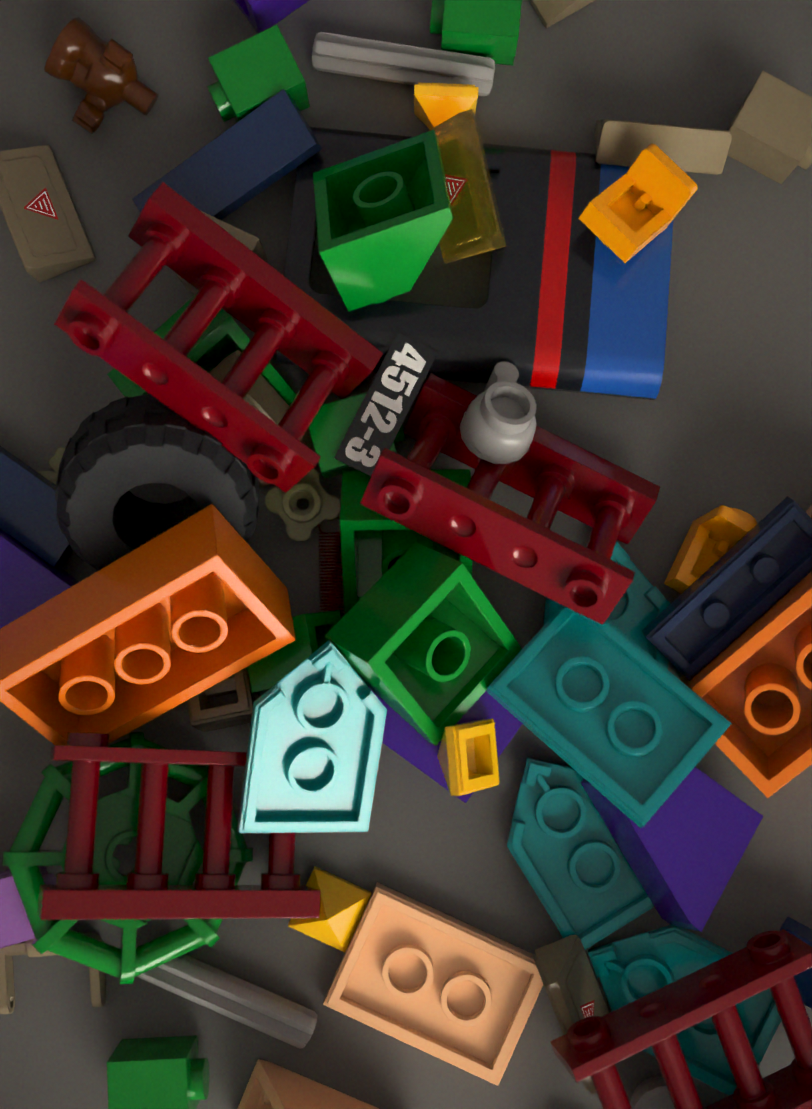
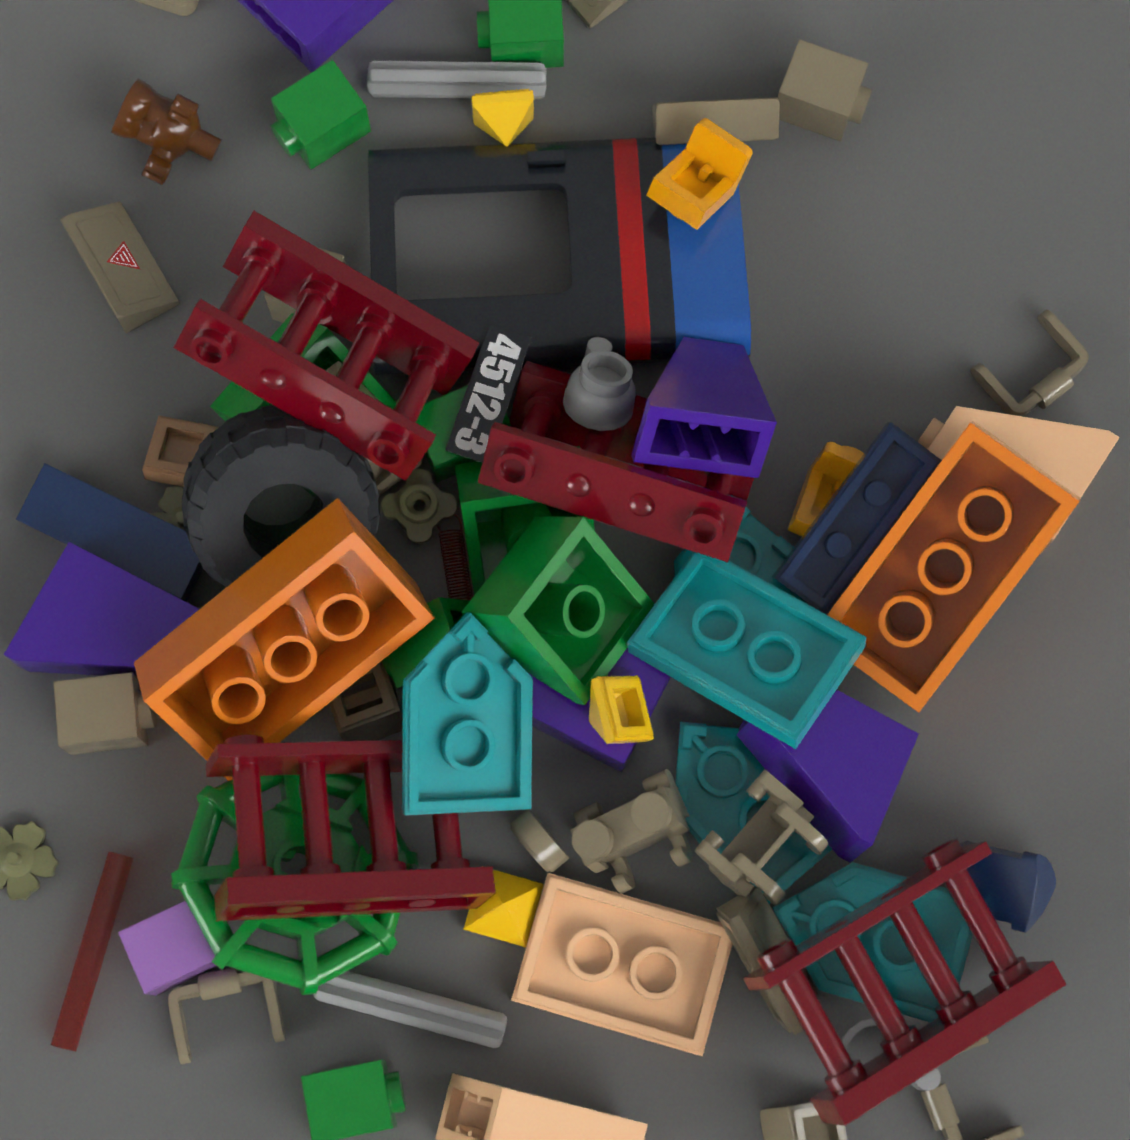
camera: 15 degrees left, 10 degrees down
(68, 406) = (172, 448): none -> medium nougat tile
(242, 159) = (314, 186): dark blue tile -> none
(372, 858) = (538, 841): none -> dark tan tile
(382, 218) = (460, 220): green slope -> none
(464, 864) = (632, 828): none -> dark tan piece
(474, 208) = (529, 185): clear yellow slope -> none
(589, 903) = (760, 839): none -> dark tan piece
(608, 464) = (707, 412): none -> dark purple slope

